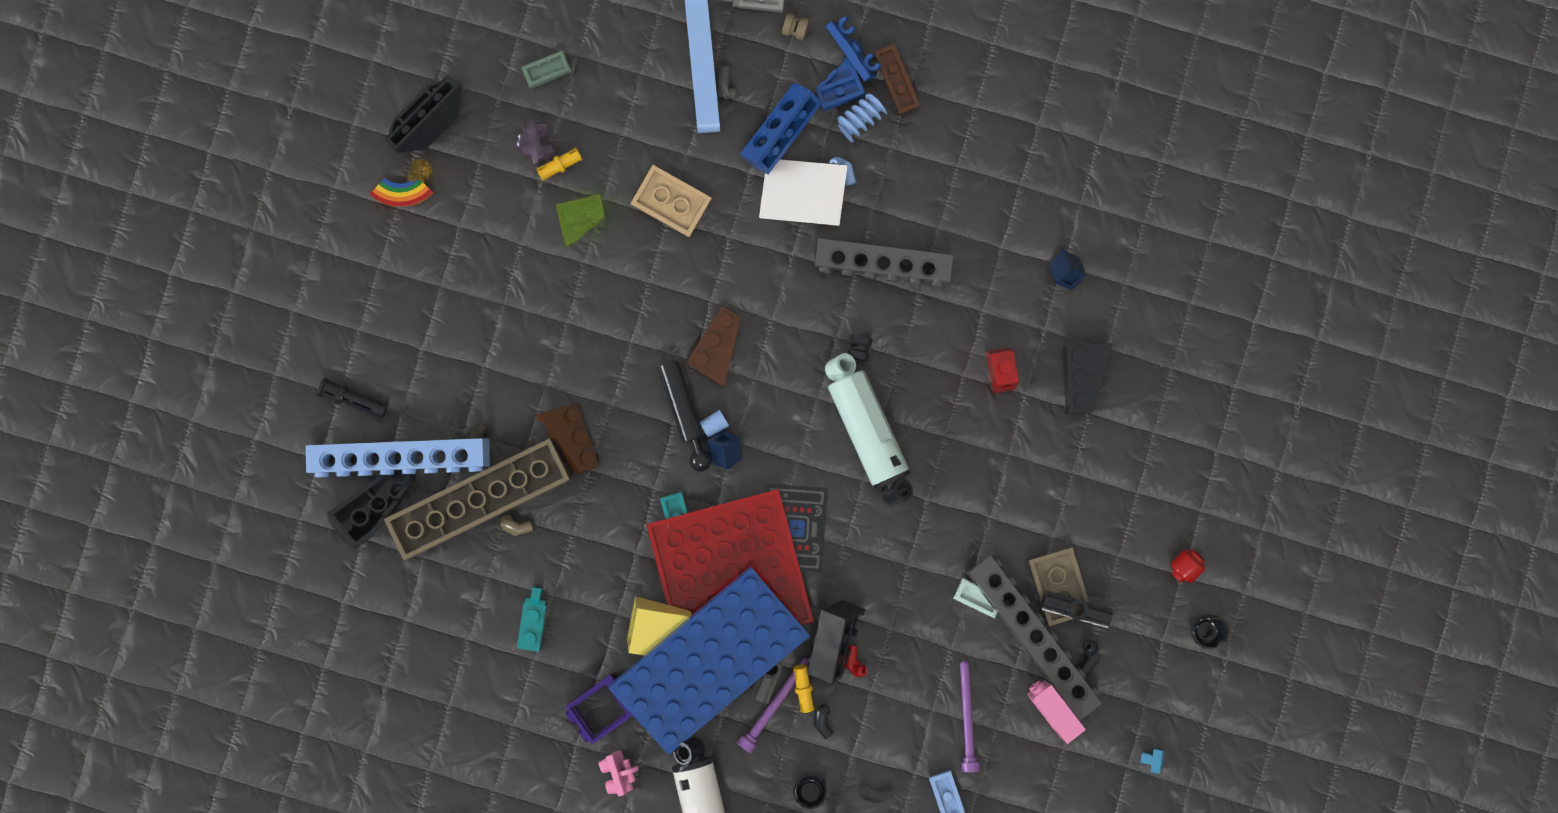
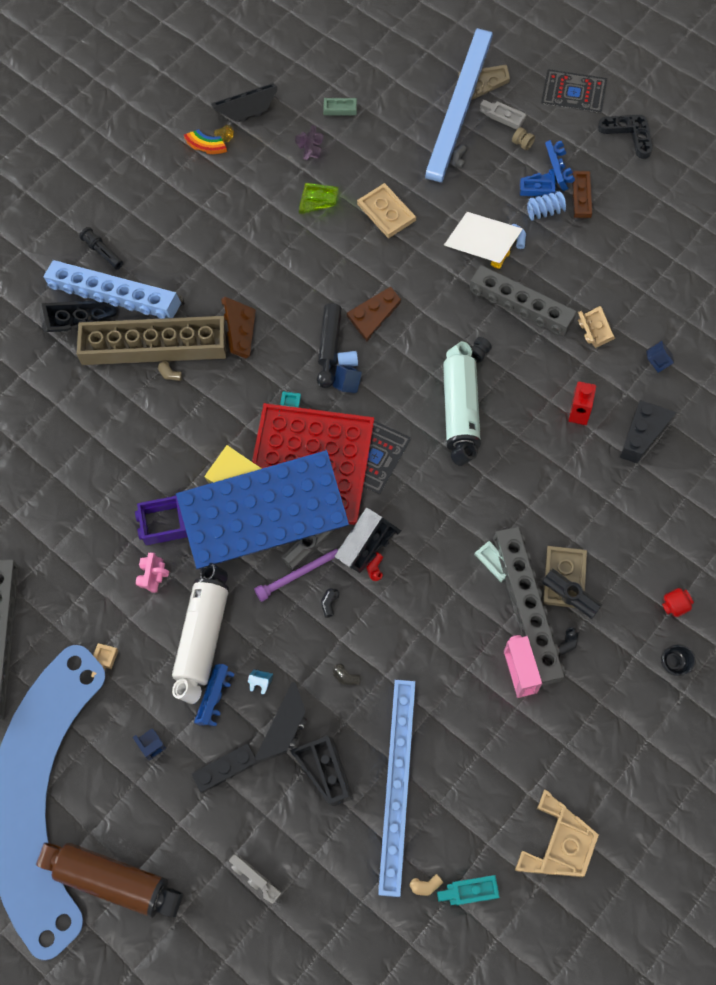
camera: 25 degrees right, 20 degrees down
(532, 621) = (146, 440): teal hinge -> none
(559, 164) = (320, 162): yellow pin -> none
(781, 128) = (485, 191): blue brick -> none
(803, 688) = (325, 568): yellow pin -> none
(810, 791) = (293, 647): black hair -> none
(969, 762) = (434, 683): medium lavender piece -> none
(981, 261) = (596, 326): none -> tan bracket
(1155, 759) = (591, 745): dark azure tile -> none

